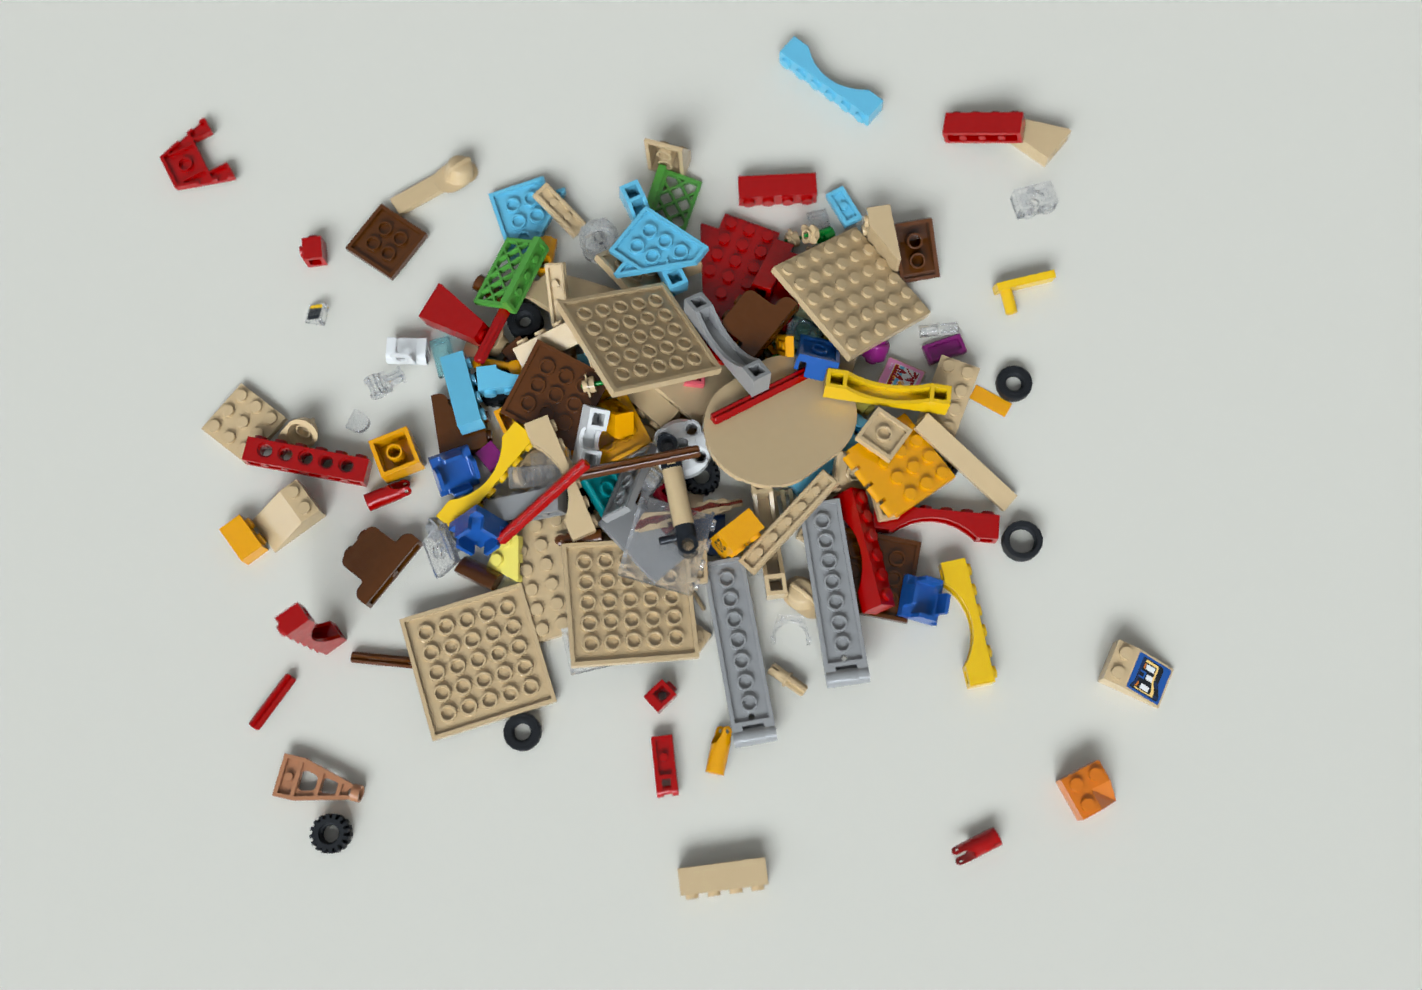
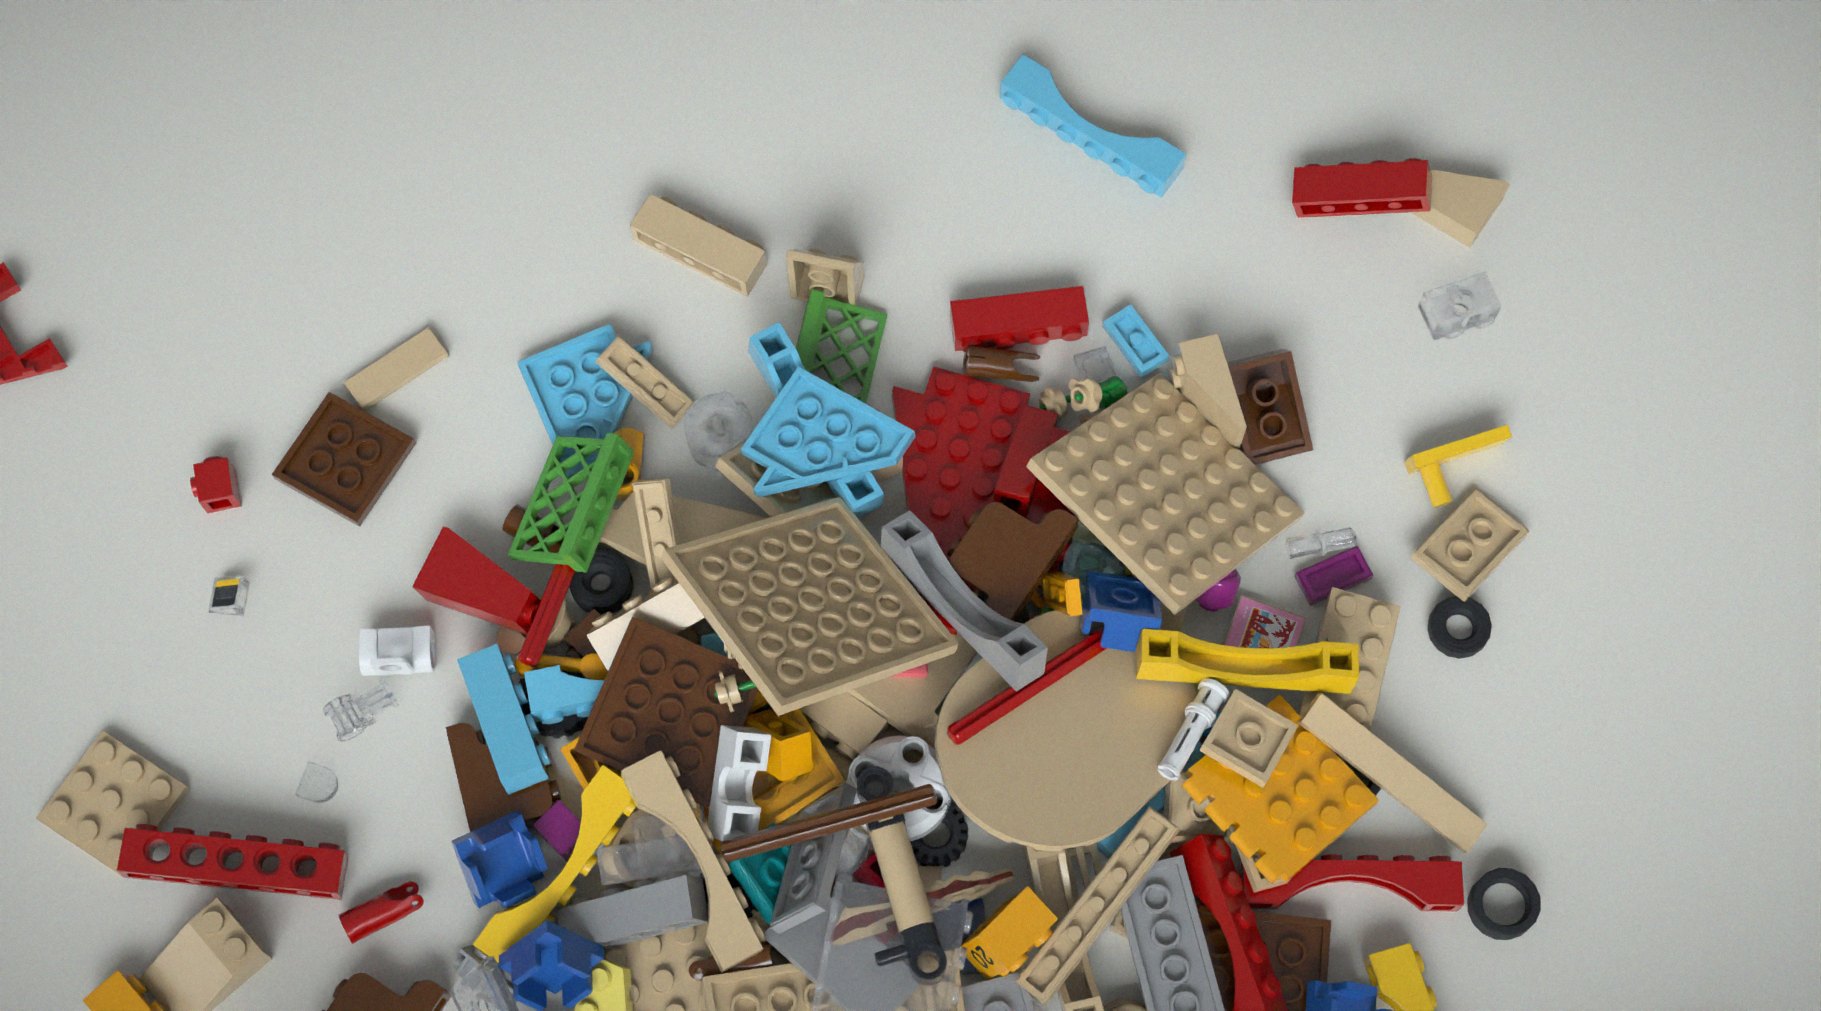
camera: 10 degrees left, 5 degrees down
(300, 431) = (216, 809): tan piece -> none
(396, 454) = (392, 838): light orange brick -> none
(440, 347) = (456, 642): clear light blue tile -> none
(456, 174) = (456, 331): tan piece -> none
(543, 501) = (666, 904): red axle -> none
(597, 134) = (699, 244): none -> tan brick
(761, 214) = (995, 363): none -> reddish brown piece
(856, 420) = (1199, 716): none -> white pin
(990, 400) = (1423, 659): light orange sticker -> none
(1024, 337) = (1469, 544): none -> tan tile

